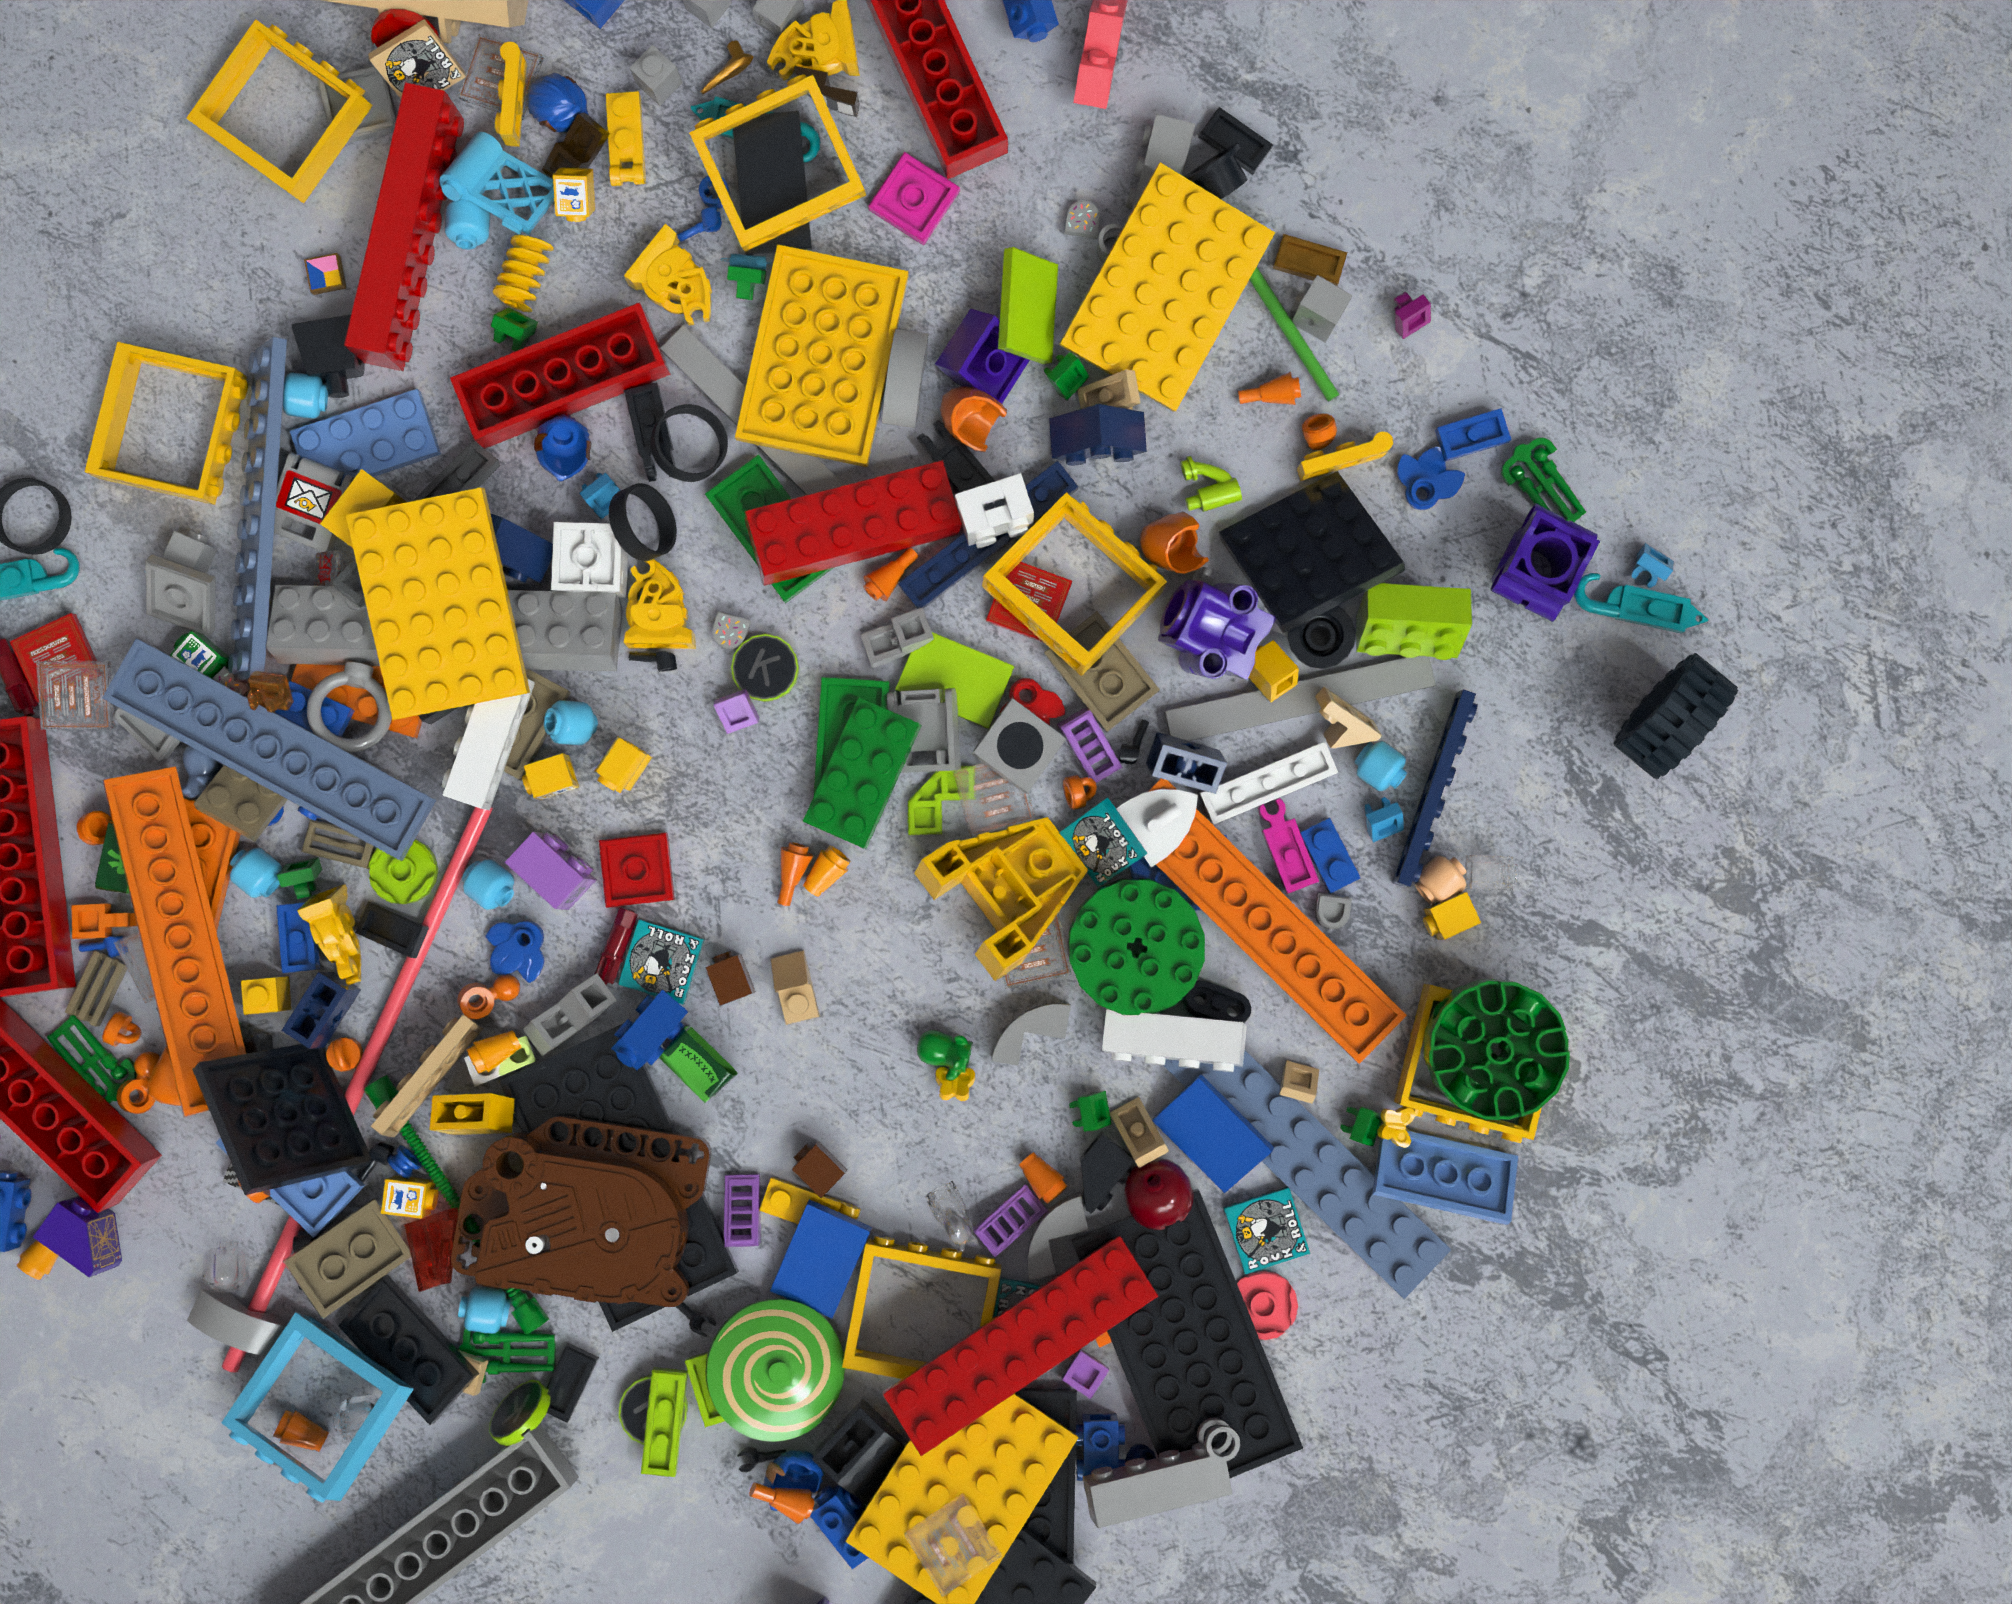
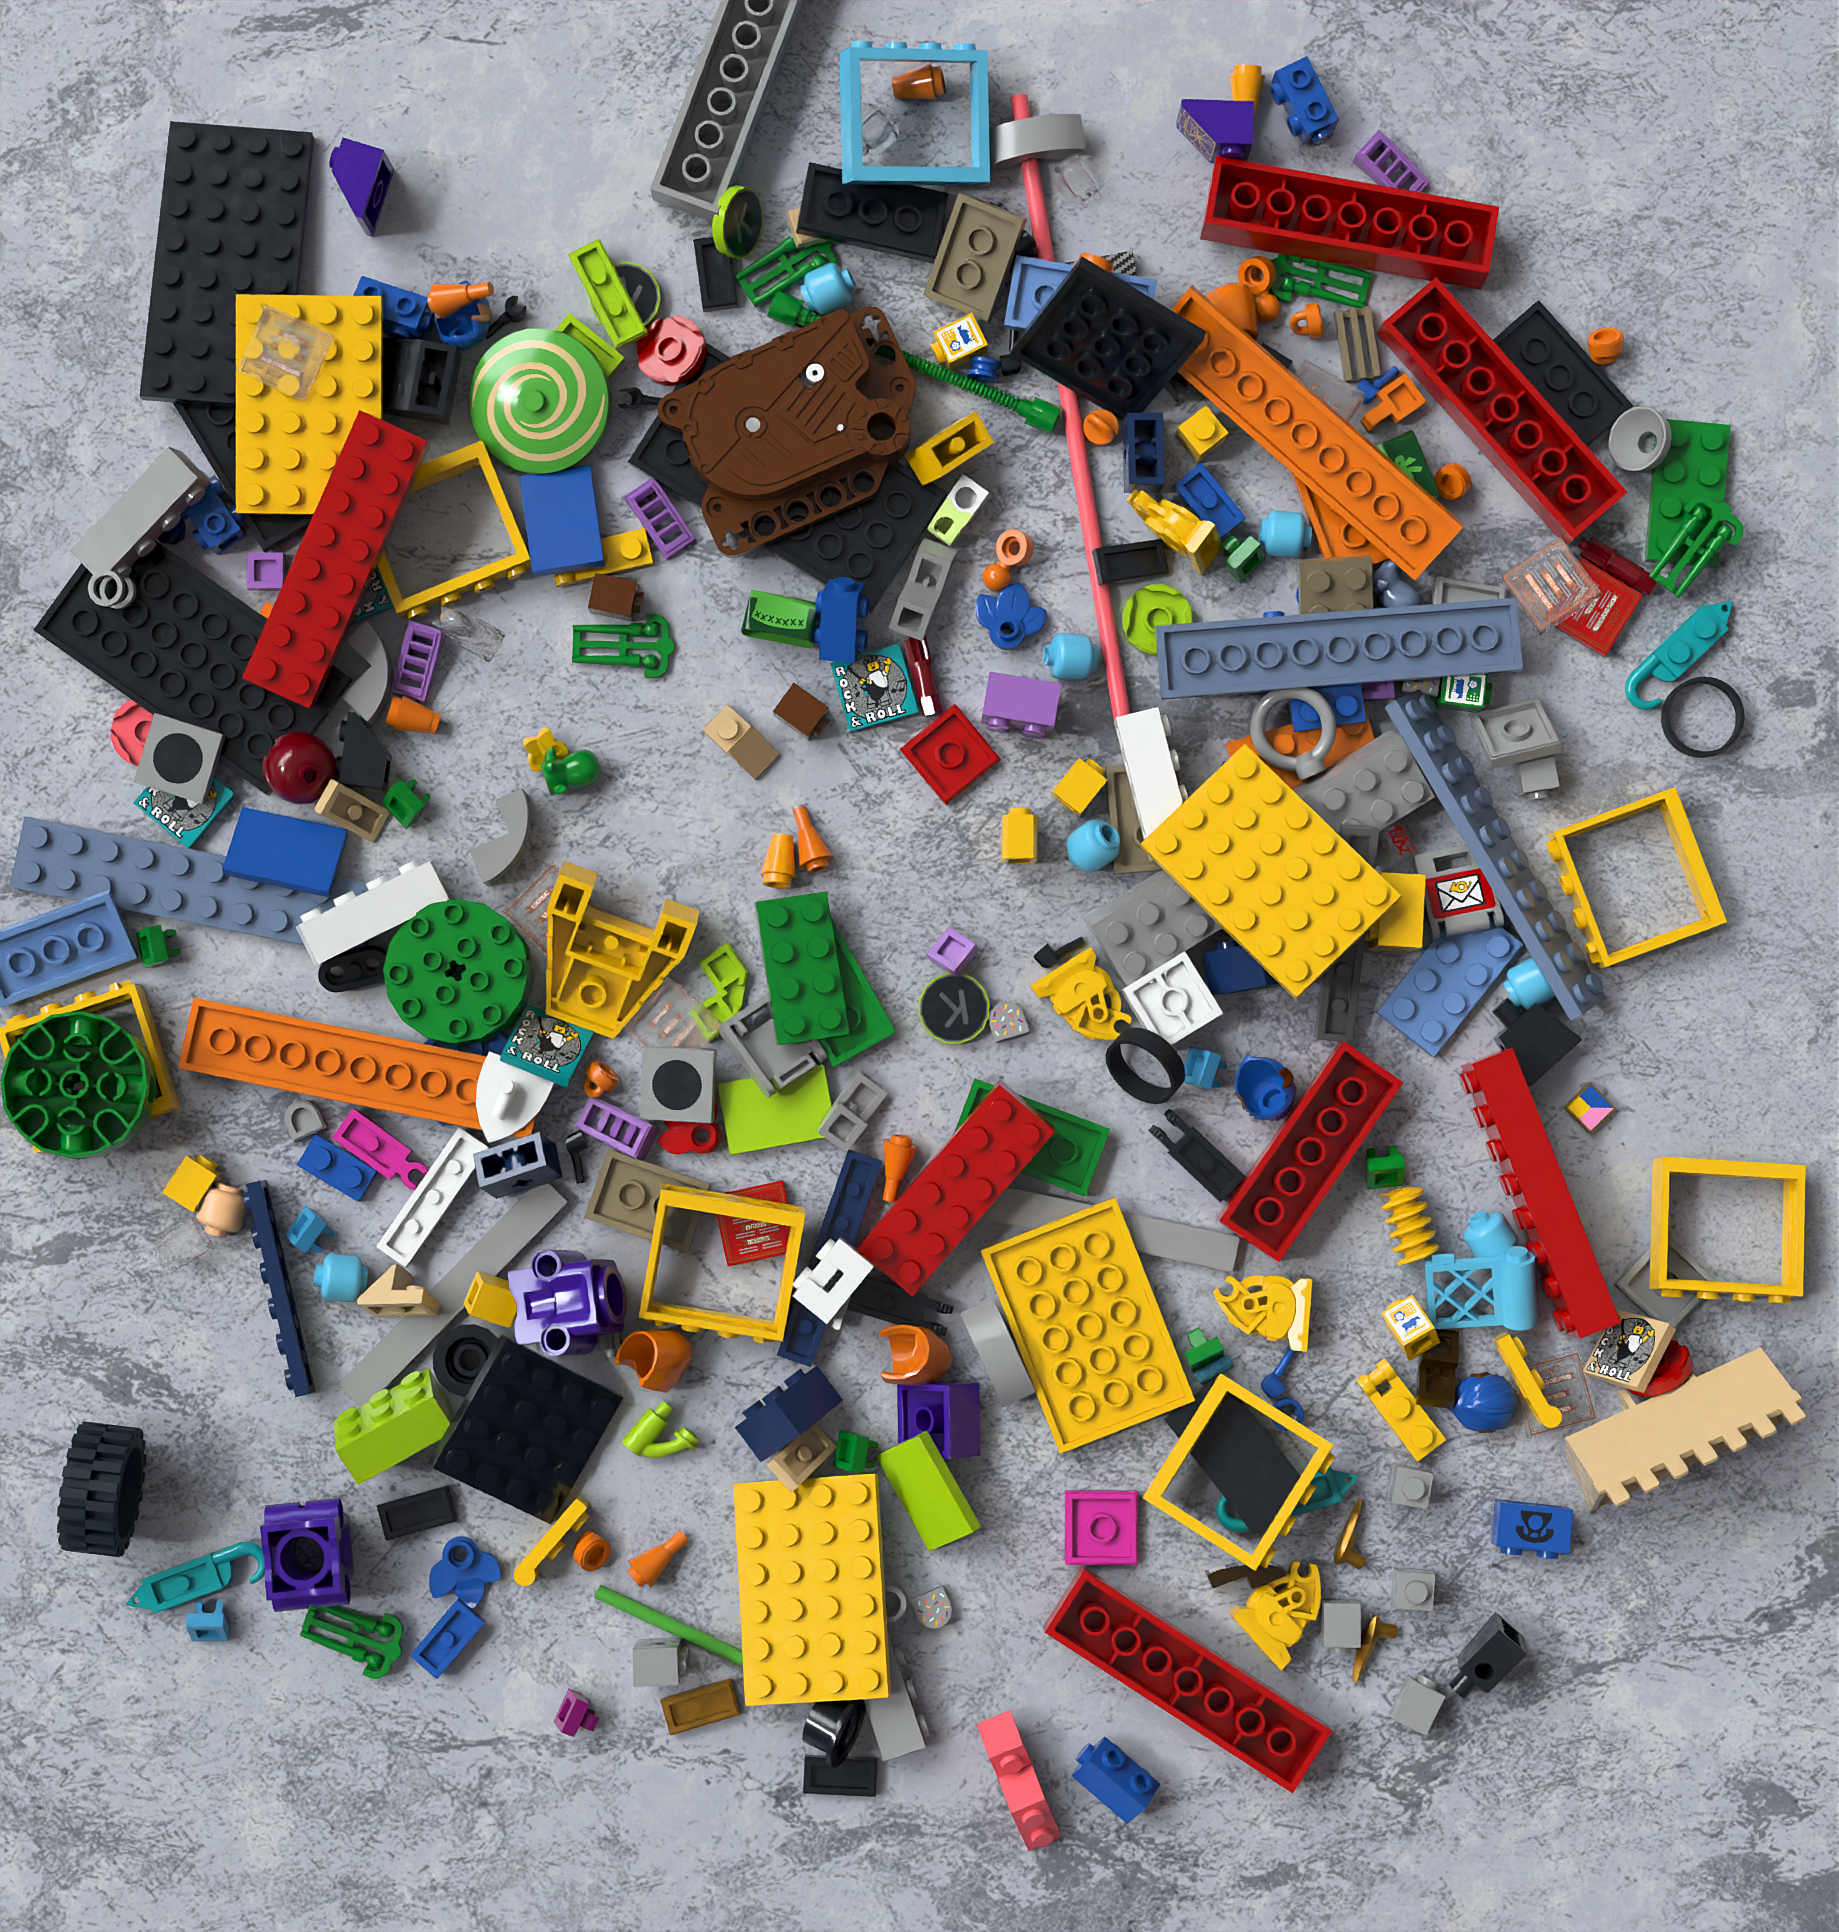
camera: 145 degrees right, 0 degrees up
(269, 691) = (1371, 698): clear orange tile -> none
(310, 836) = (1258, 597): dark tan tile -> none
(417, 1087) = (1012, 440): tan plate -> none
(431, 1248) = (908, 311): clear red wing -> none
(492, 1051) = (965, 514): light orange cone -> none
(643, 1341) = (671, 350): none -> tile
(707, 416) = (1138, 1197): black tyre -> none
(807, 1104) = (664, 645): none -> green piece
(1250, 1264) = (179, 758): none -> light grey tile
(1299, 1082) = (237, 947): tan tile -> none
(1395, 1125) = (127, 963): yellow piece -> none
(1436, 547) = (417, 1512): none -> black tile

